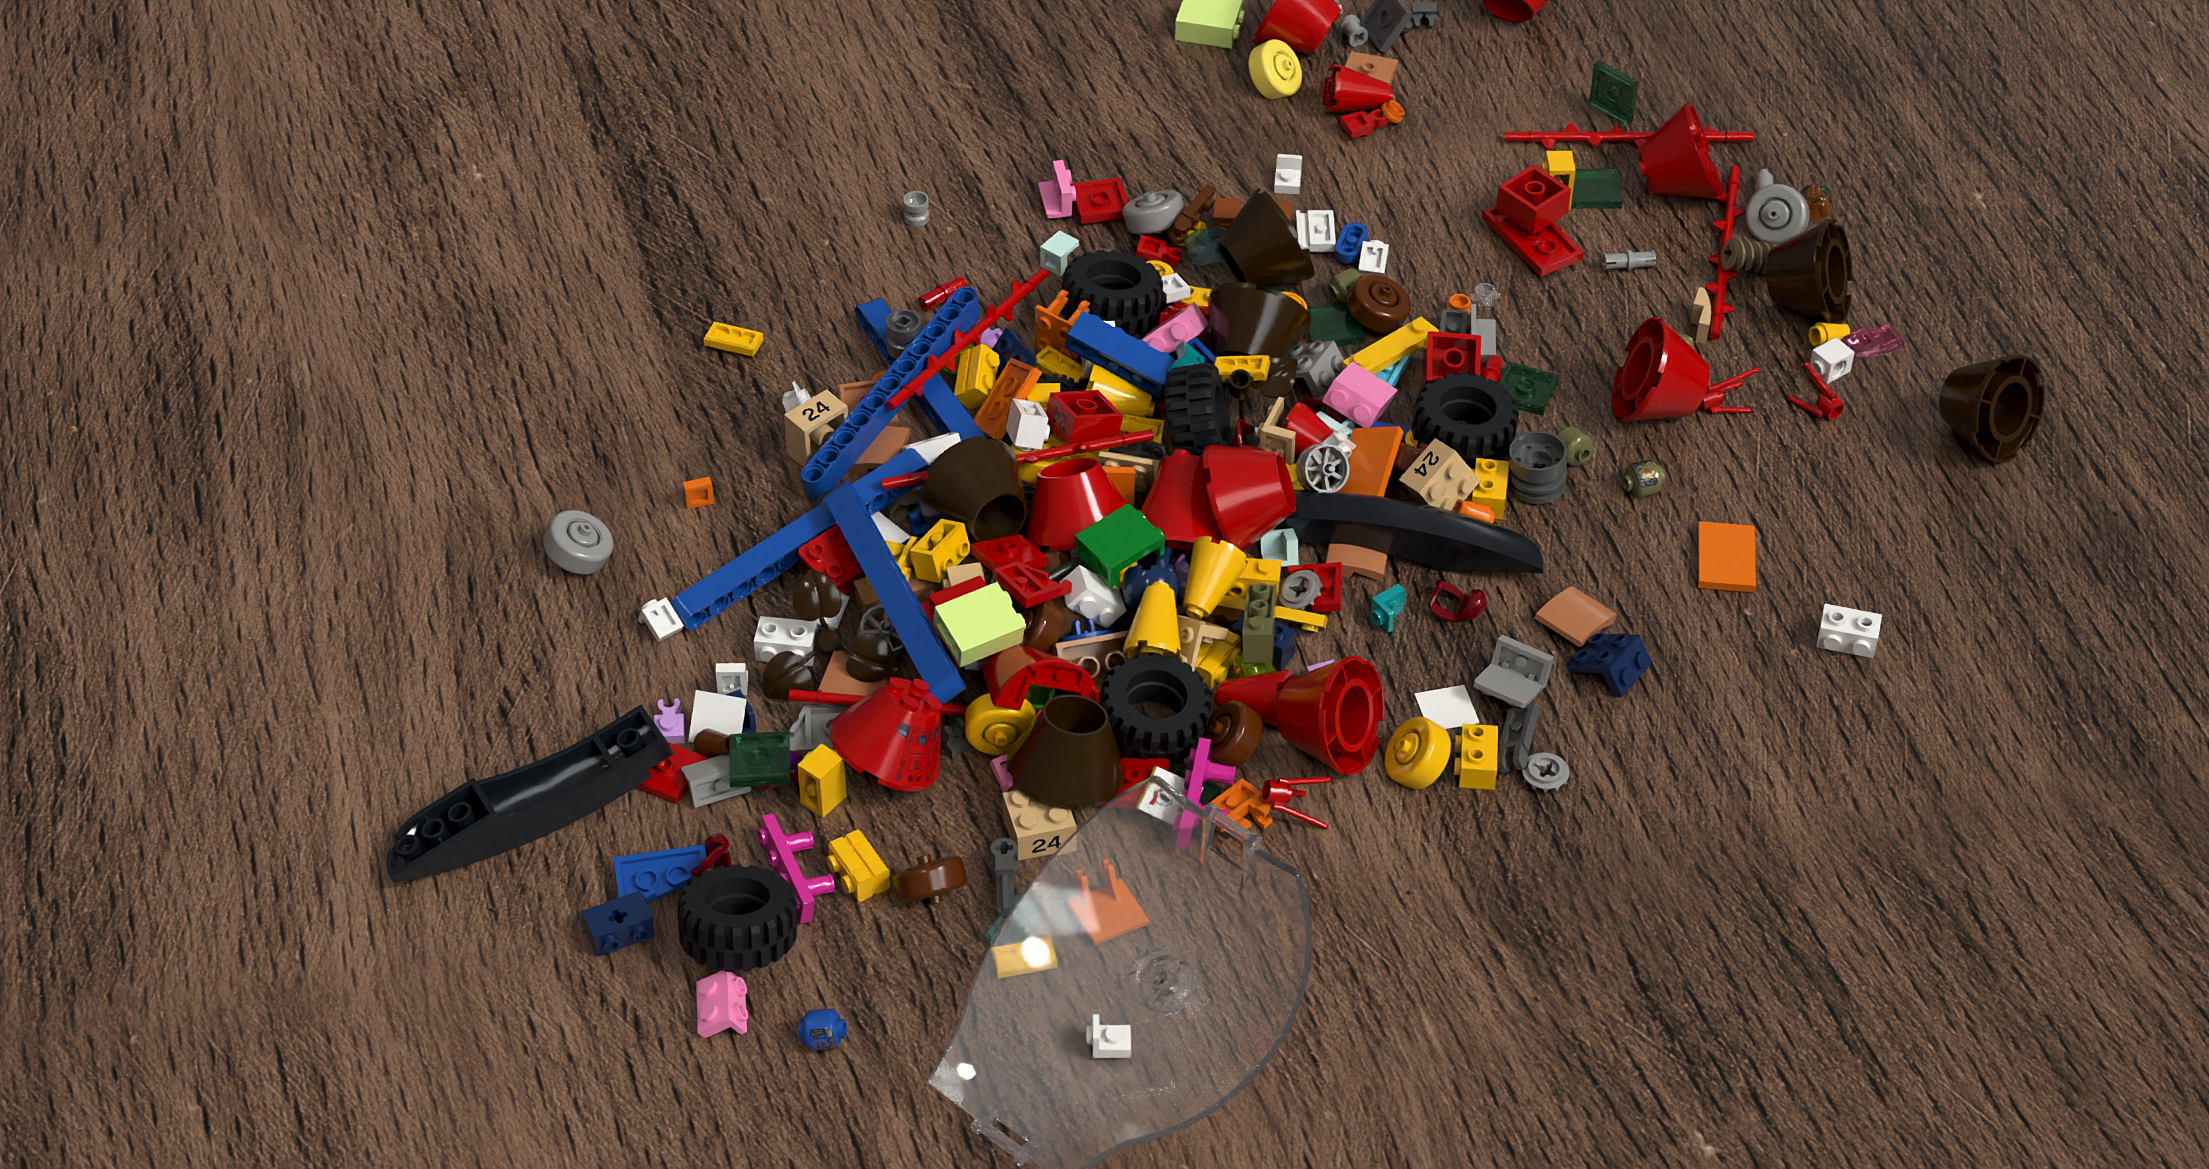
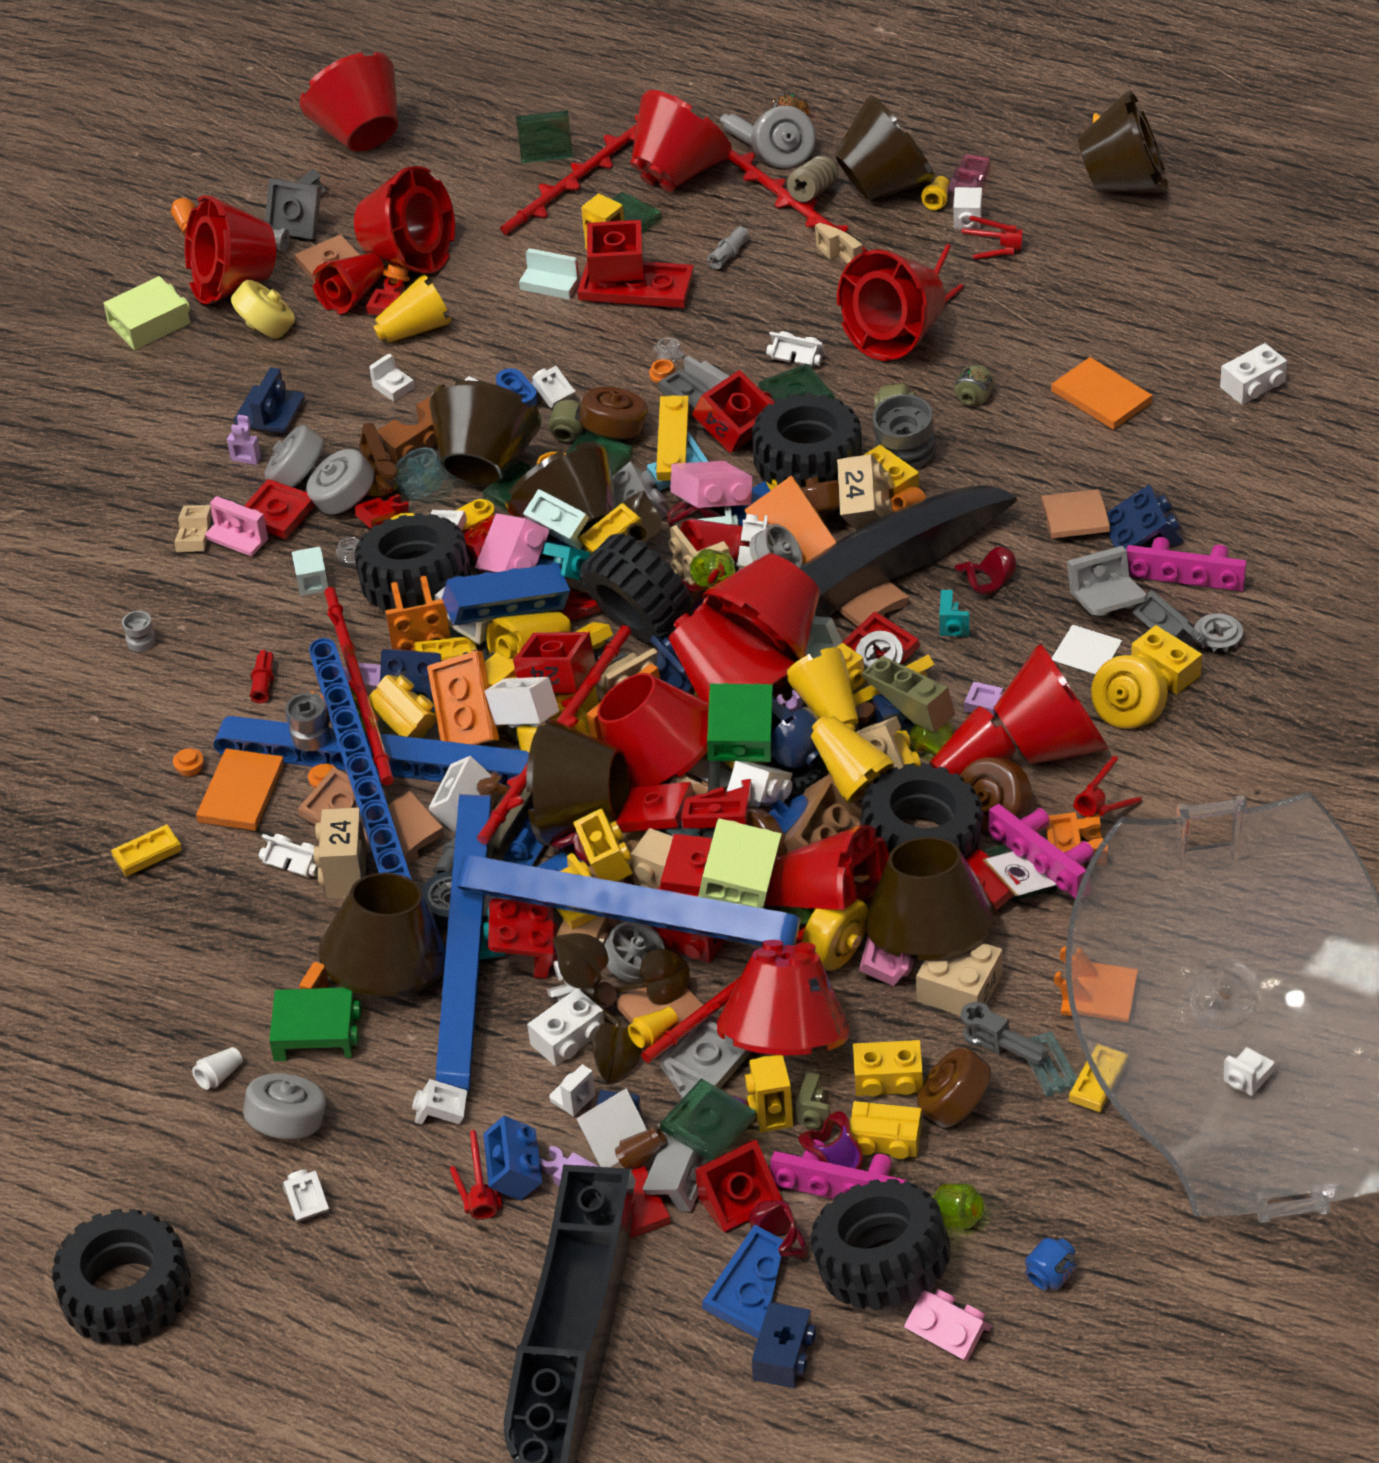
camera: 45 degrees left, 0 degrees up
(374, 579) = (127, 1311): none -> black tyre
(520, 601) = (305, 1195): none -> white bracket
(585, 491) = (216, 1068): none -> white cone
(600, 690) = (481, 1201): none -> red plant
(643, 682) = (512, 1158): none -> blue brick
(666, 512) = (314, 1020): none -> green panel
(732, 812) = (735, 1185): none -> red slope
(756, 493) = (383, 938): none -> dark brown cone
(812, 854) = (843, 1151): none -> piece
(817, 679) = (650, 1027): none -> yellow cone
(825, 945) = (959, 1205): none -> clear neon green head
(831, 309) = (188, 762): none -> orange plate
(834, 349) = (240, 789): none -> orange tile
(844, 808) = (809, 1103): none -> olive bracket
(915, 832) = (887, 1068): none -> yellow brick
(1041, 172) = (193, 524): none -> tan slope
(1136, 143) = (242, 445): none -> lavender plate
(1152, 175) = (295, 456): none -> light grey wheel
(1192, 133) = (270, 404): none -> dark blue bracket
(1210, 330) = (562, 519): none -> light aqua panel
(1261, 438) = (711, 567): none -> clear neon green head
(1359, 142) = (412, 313): none -> yellow cone
(1449, 93) = (407, 221): none -> red cone
(1482, 185) = (550, 274): none -> light aqua panel
(1572, 367) = (807, 350): none -> white hinge
(1579, 701) = (1186, 568): none -> dark pink plate

